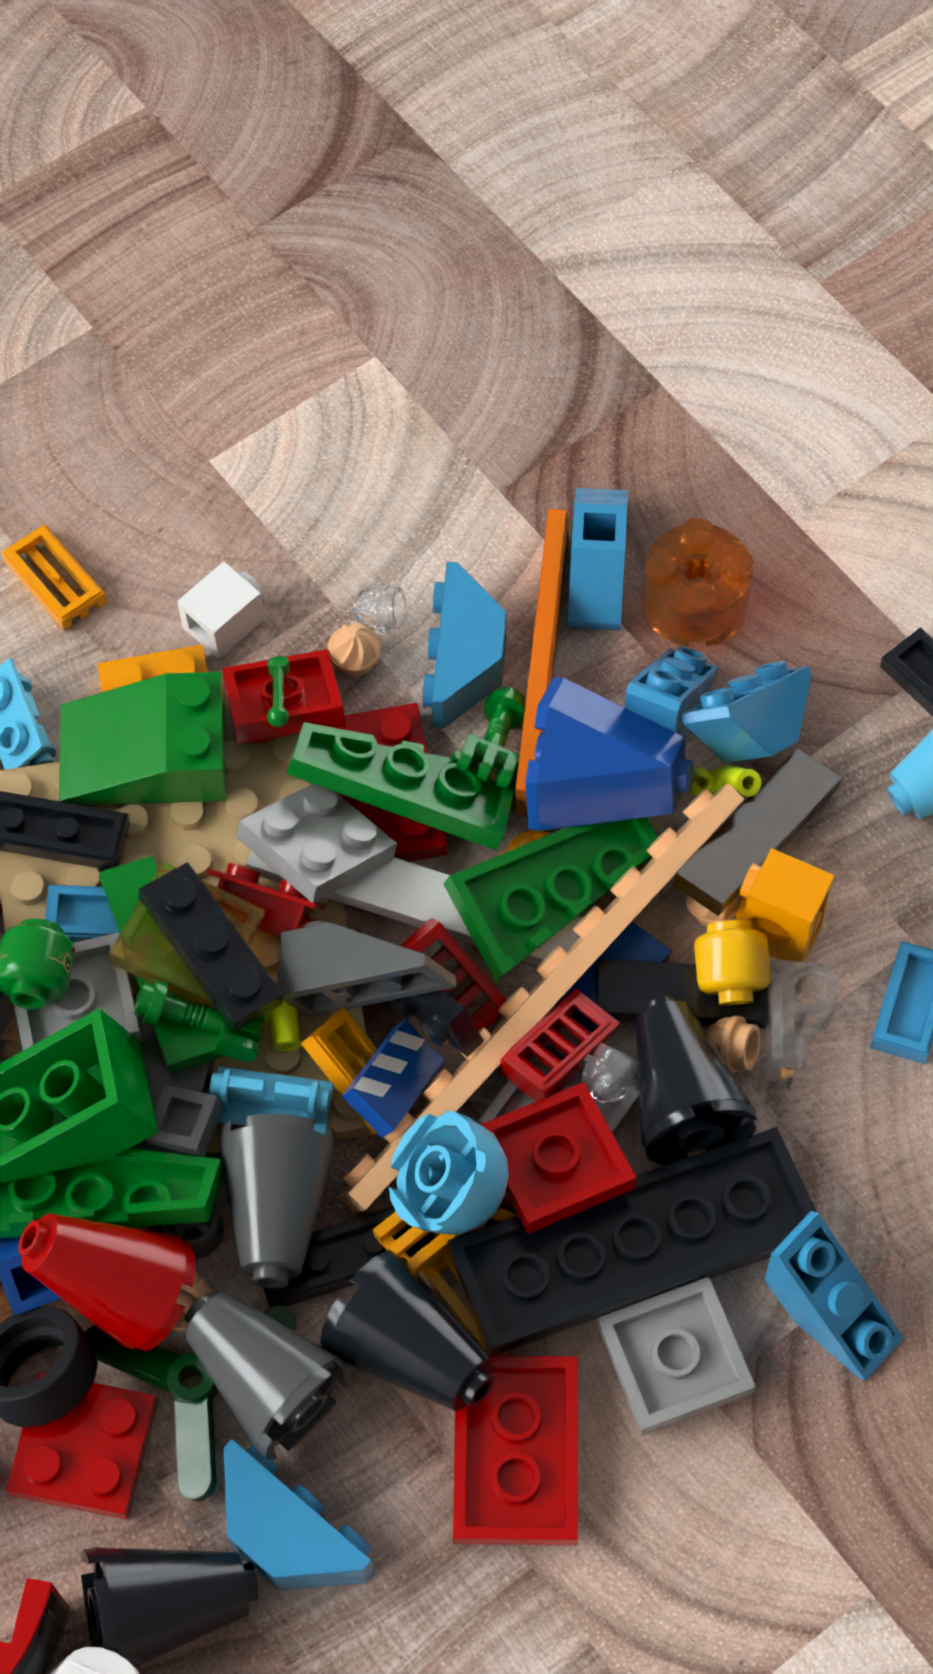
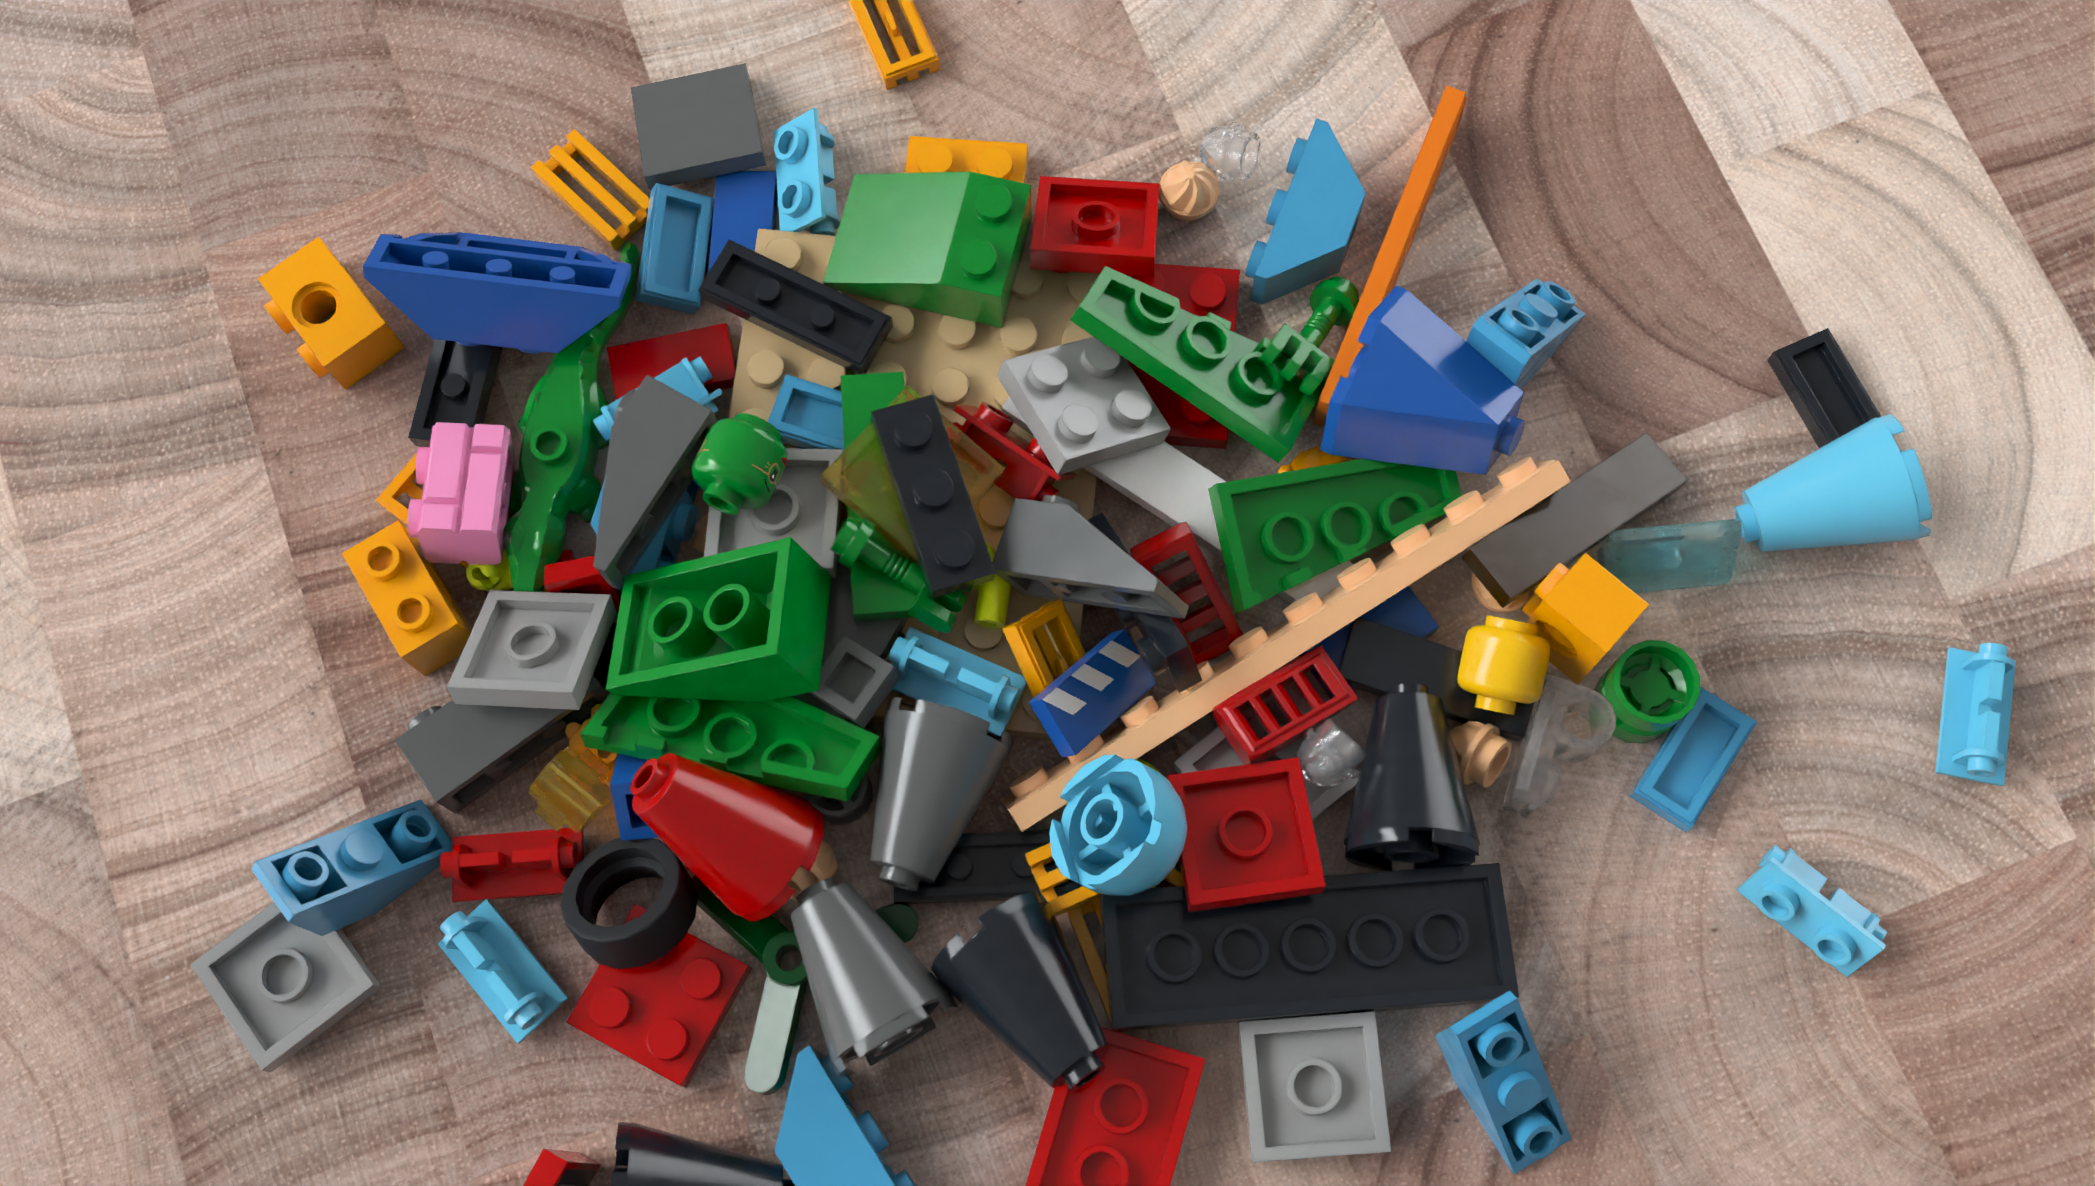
camera: 20 degrees right, 10 degrees up
(222, 609) = (1058, 109): white brick -> none
(278, 667) = (1098, 192): green hinge -> none
(597, 559) = (1486, 155): dark azure slope -> none
(697, 583) = (1589, 213): clear orange brick -> none
(743, 780) = (1556, 445): neon yellow arm -> none
(753, 714) = (1611, 384): dark azure slope -> none
(849, 839) = (1672, 555): none -> clear light blue slope
(860, 952) = (1659, 684): none -> green wheel

